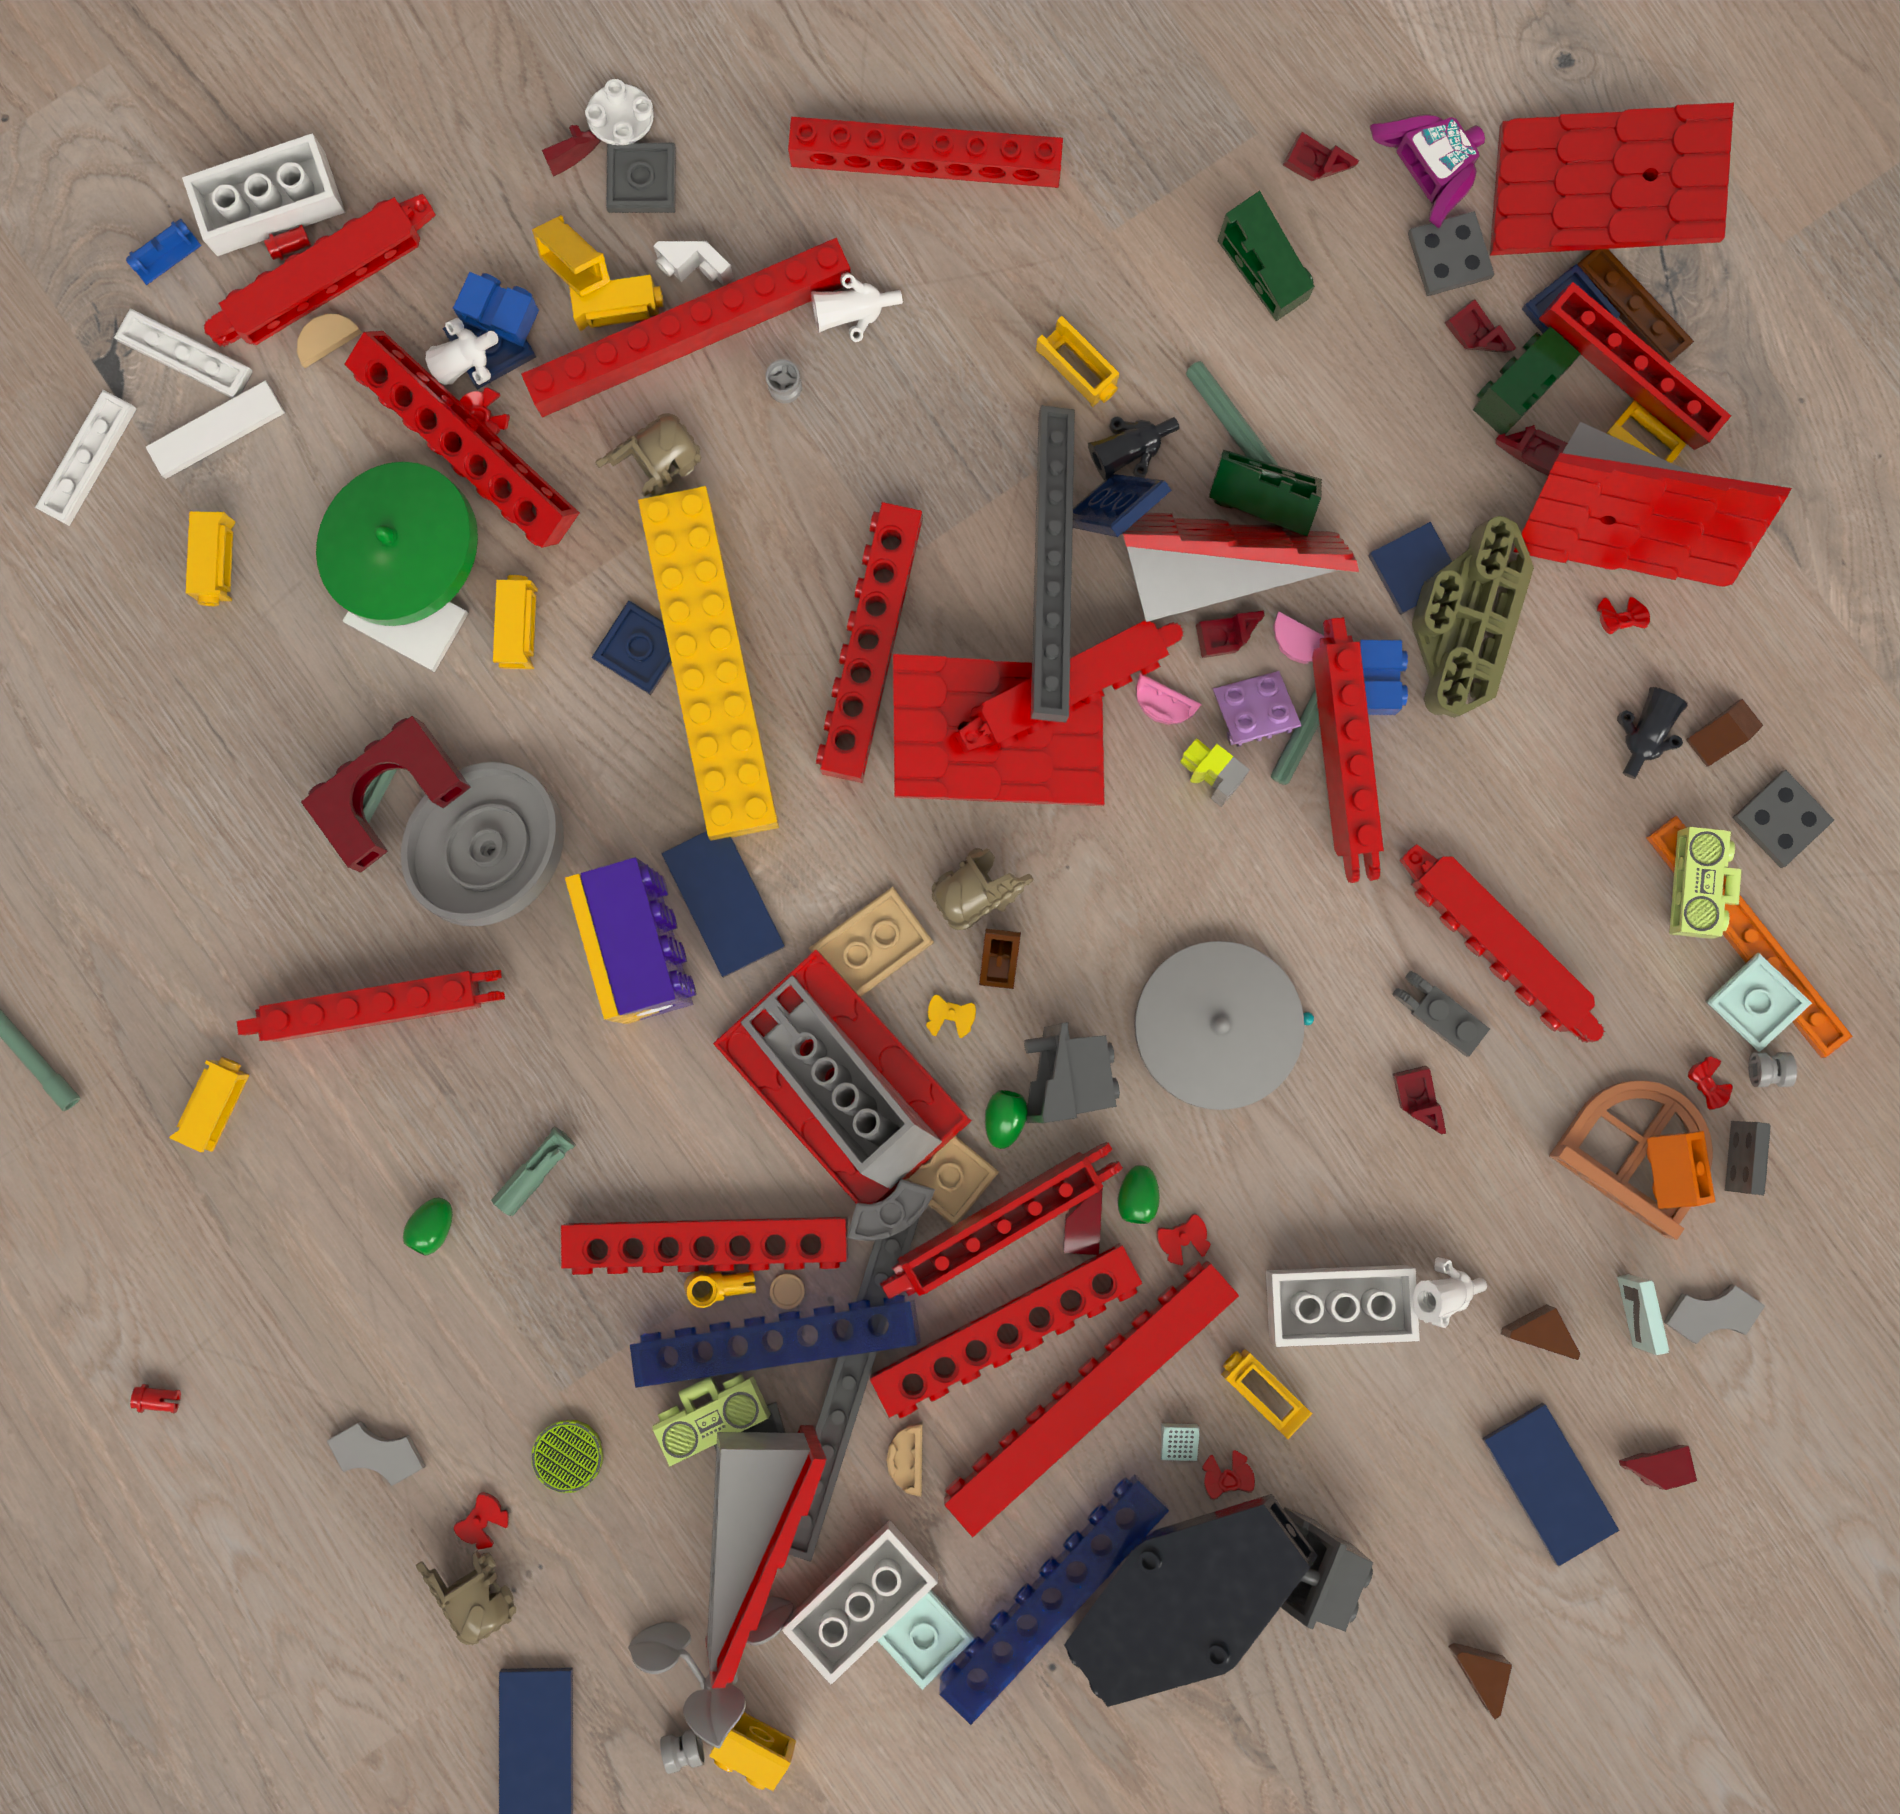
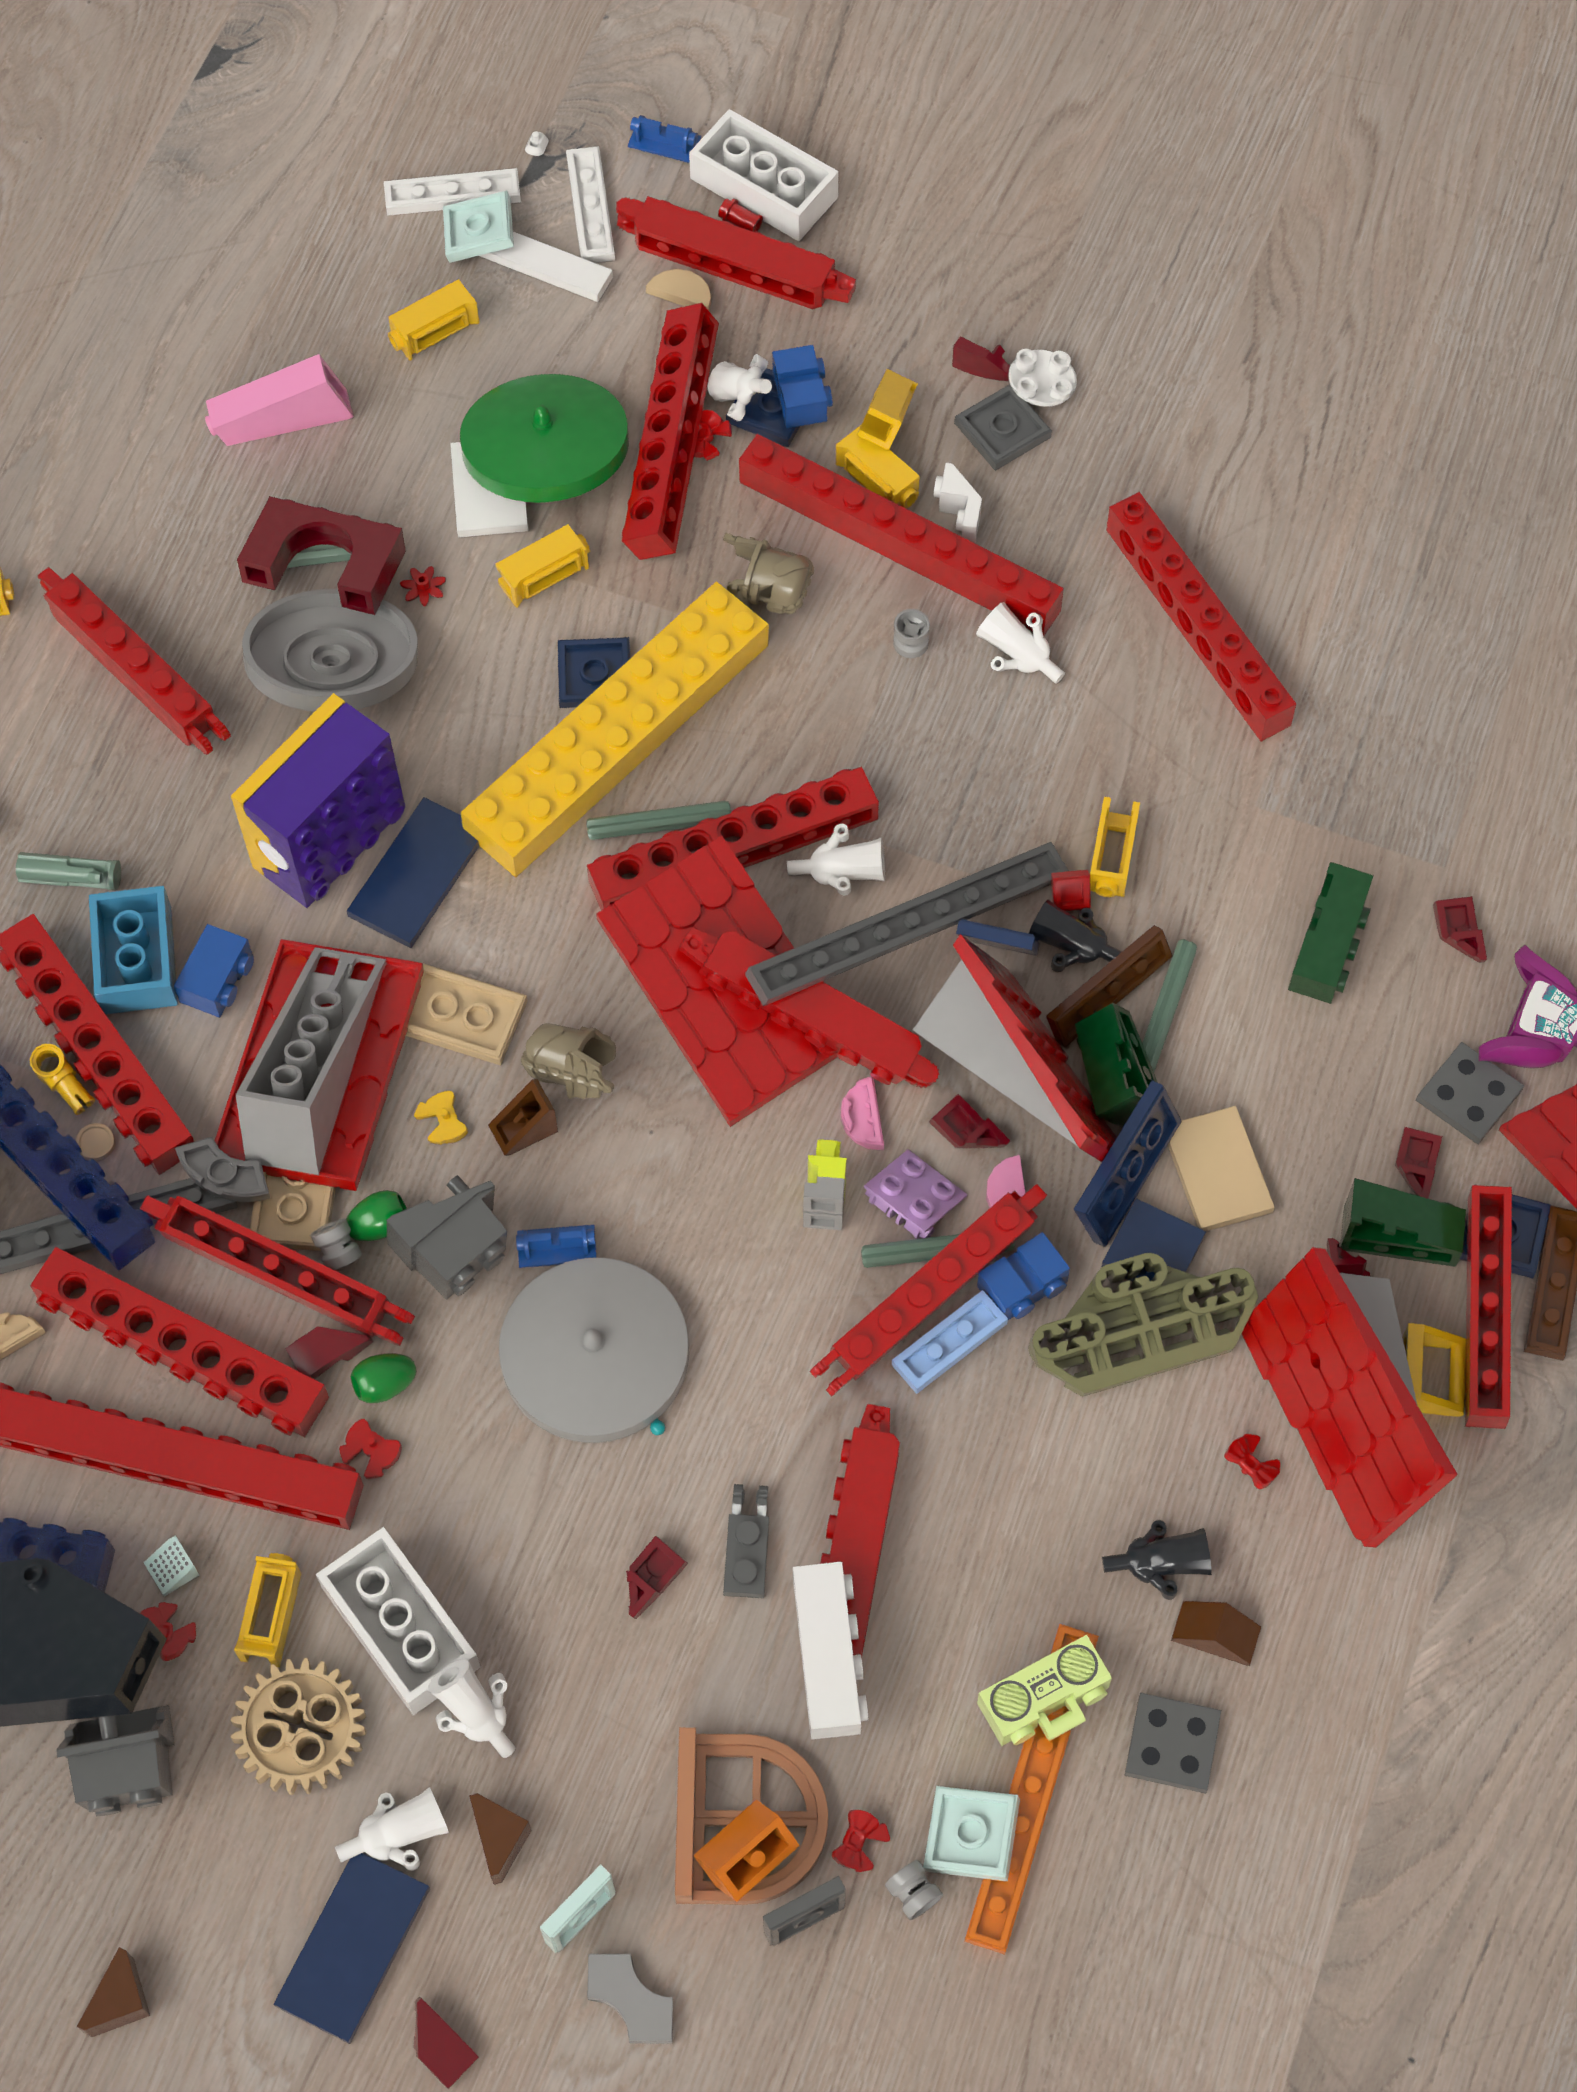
camera: 55 degrees right, 20 degrees down
(88, 357) = (536, 144): none -> white rock
(141, 460) = (478, 226): none -> light aqua tile
(206, 735) = (280, 403): none -> bright pink slope
(467, 729) = (423, 585): none -> red plant
(646, 1165) = (132, 950): none -> dark azure brick
(706, 1112) = (213, 969): none -> blue brick
(809, 686) = (654, 820): none -> sand green axle
(942, 580) = (842, 864): none -> white piece
(1002, 1164) = (336, 1244): none -> light grey wheel
(1091, 419) = (1071, 890): none -> red tile
(1116, 998) = (555, 1245): none -> blue hinge
(1190, 448) = (1110, 983): none -> reddish brown tile
(1353, 538) = (1128, 1164): none -> dark blue tile
(1385, 477) = (1219, 1170): none -> tan tile
(1387, 1451) = (283, 1760): none -> tan gear
(1391, 764) = (949, 1341): none -> light blue plate
(1491, 1401) = (396, 1827): none -> white piece
(1581, 1016) = (827, 1650): none -> white brick

